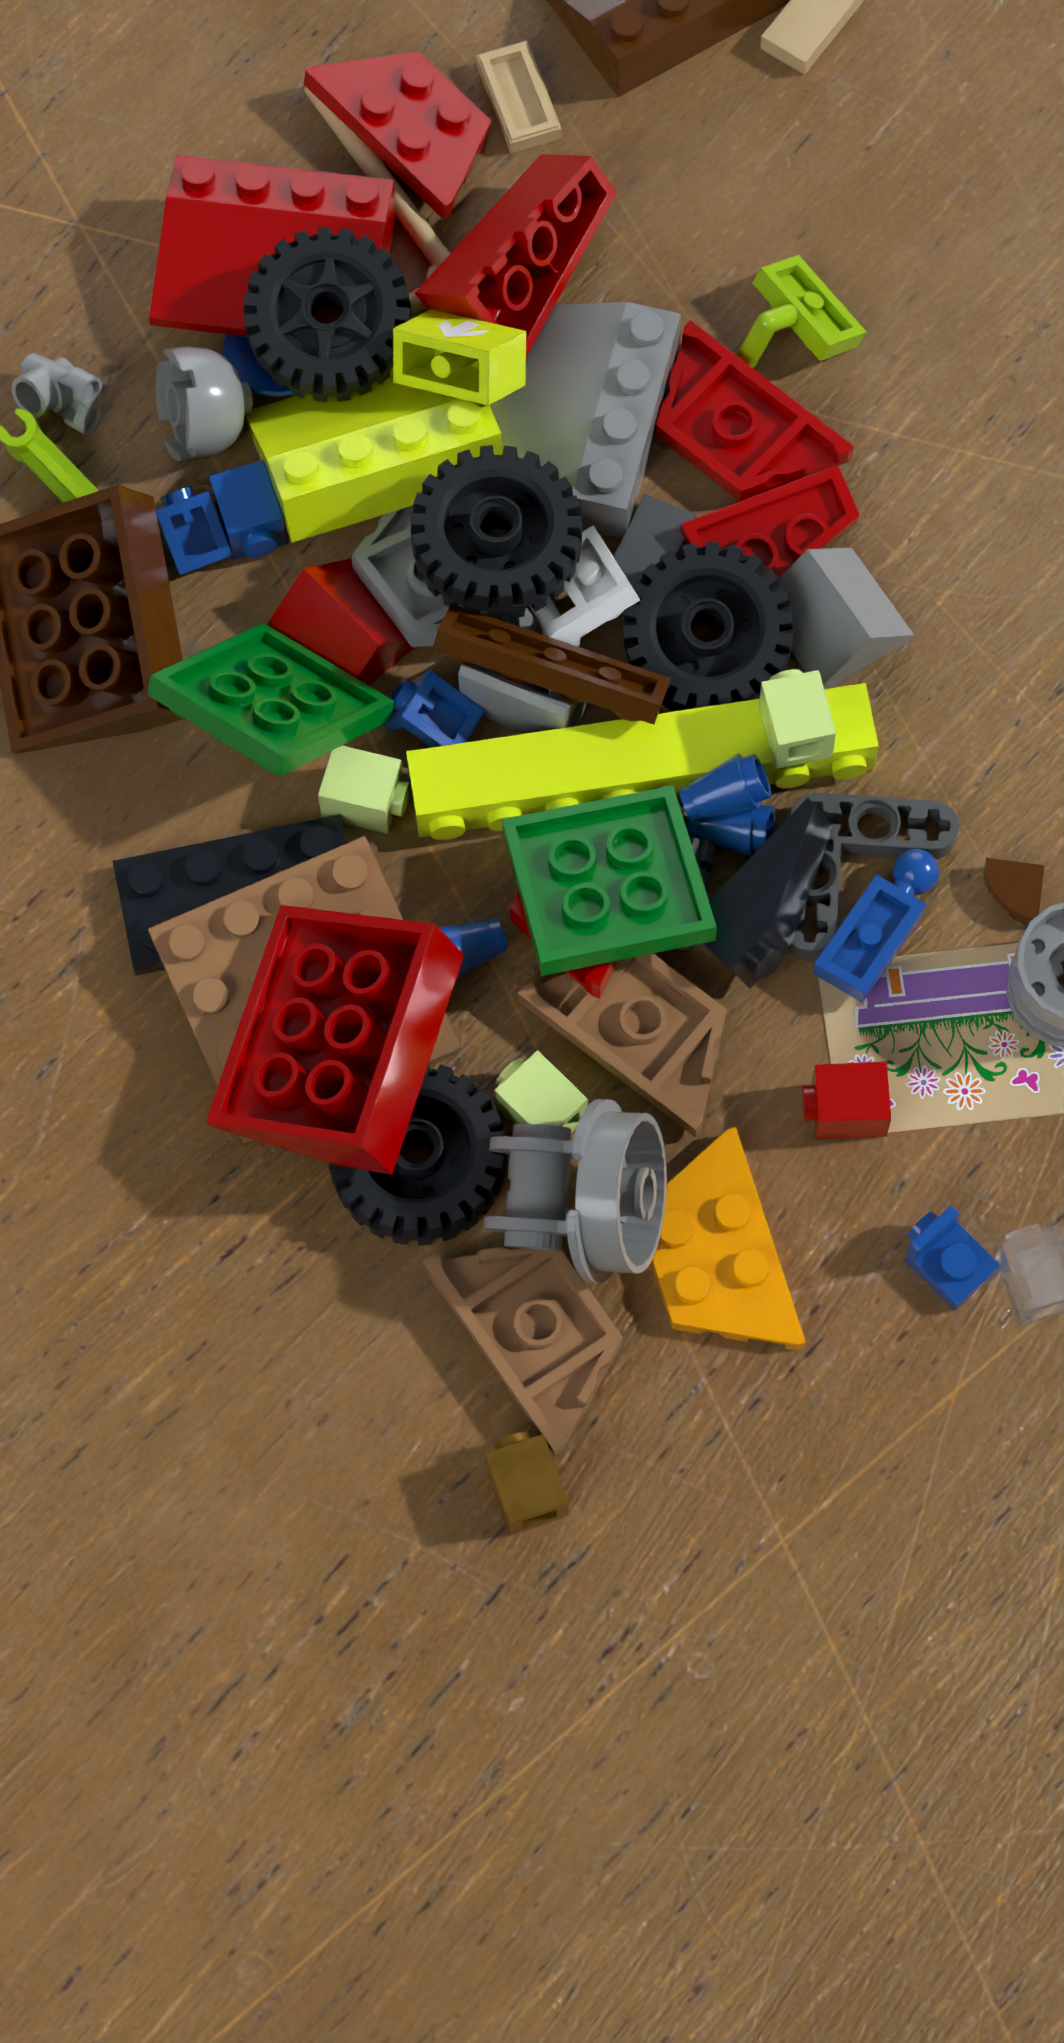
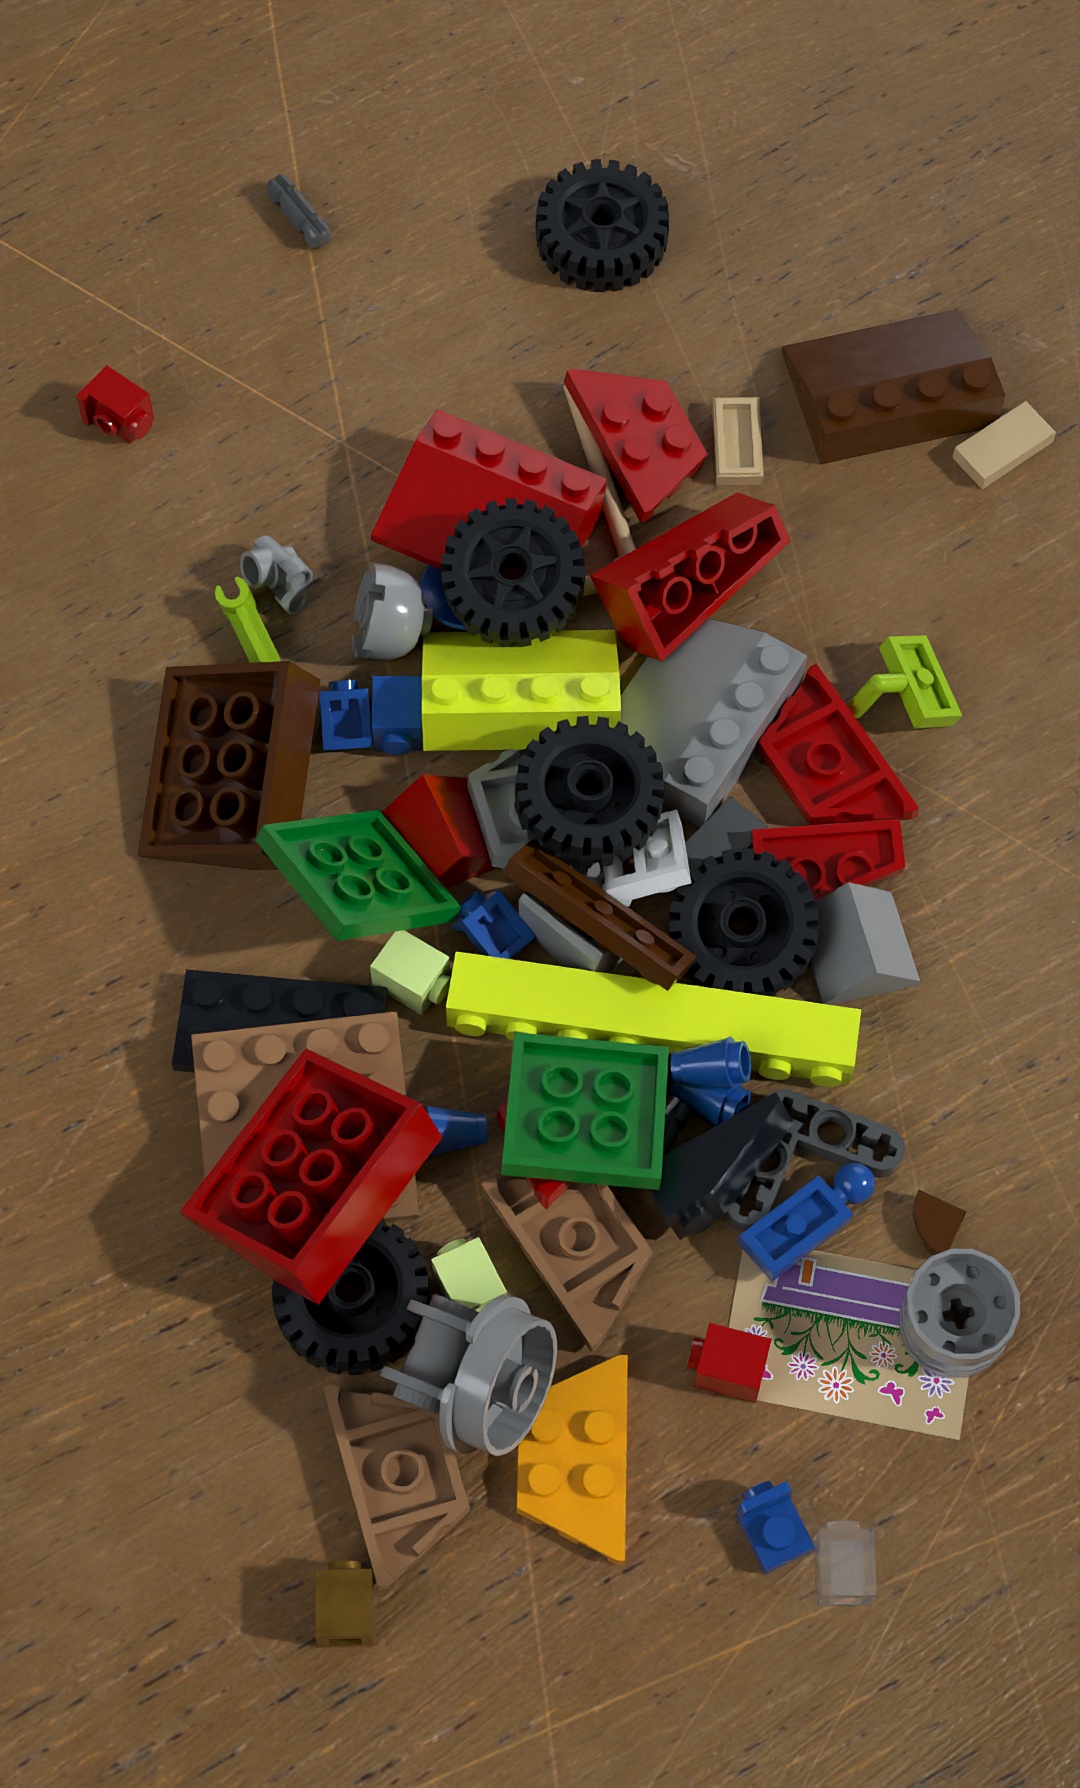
camera: 15 degrees right, 5 degrees down
(459, 357) = (608, 638): neon yellow brick -> none
(796, 718) = (790, 1021): yellowish green brick -> none

